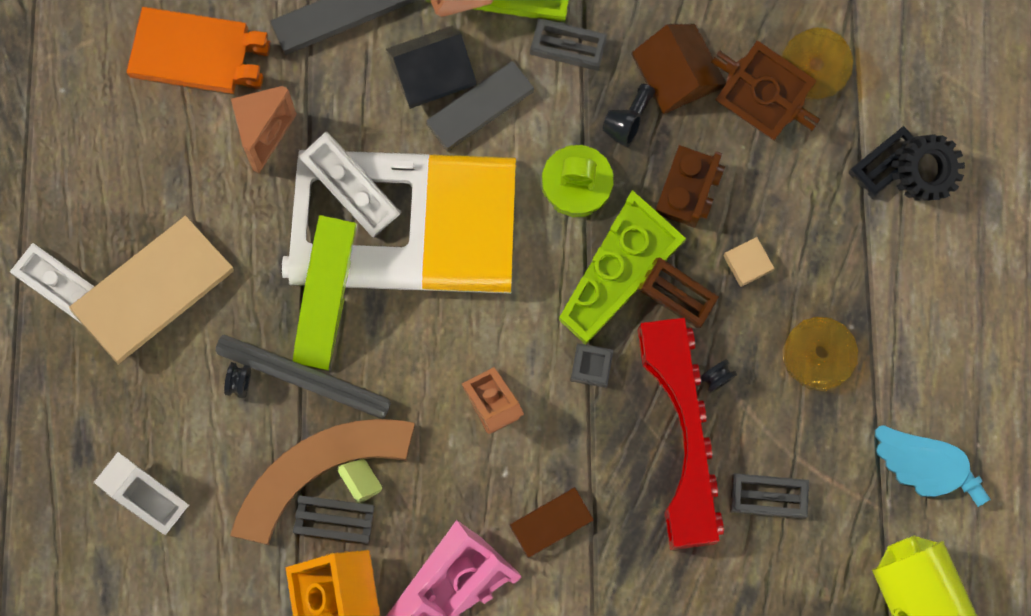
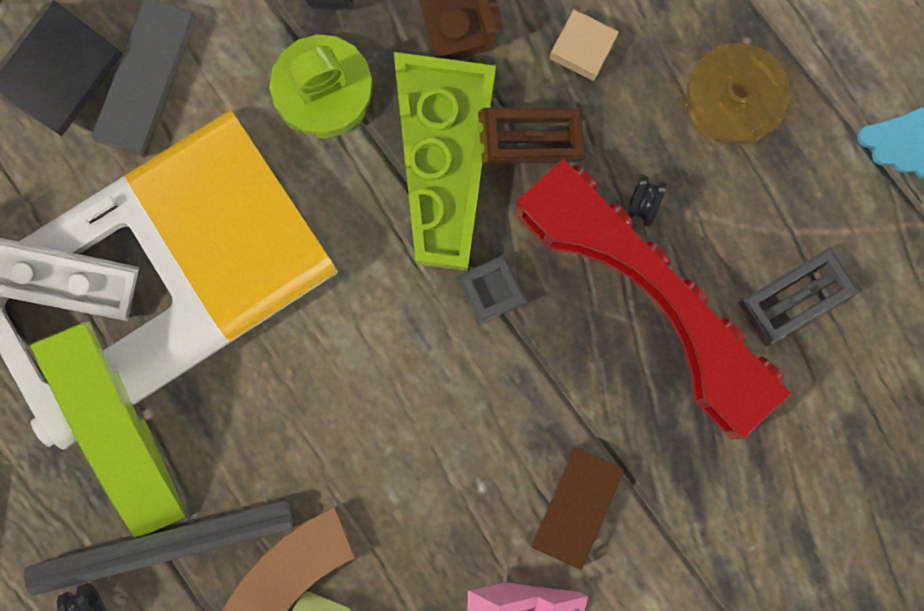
camera: 35 degrees left, 5 degrees up
(492, 400) = (408, 415): nougat slope -> none

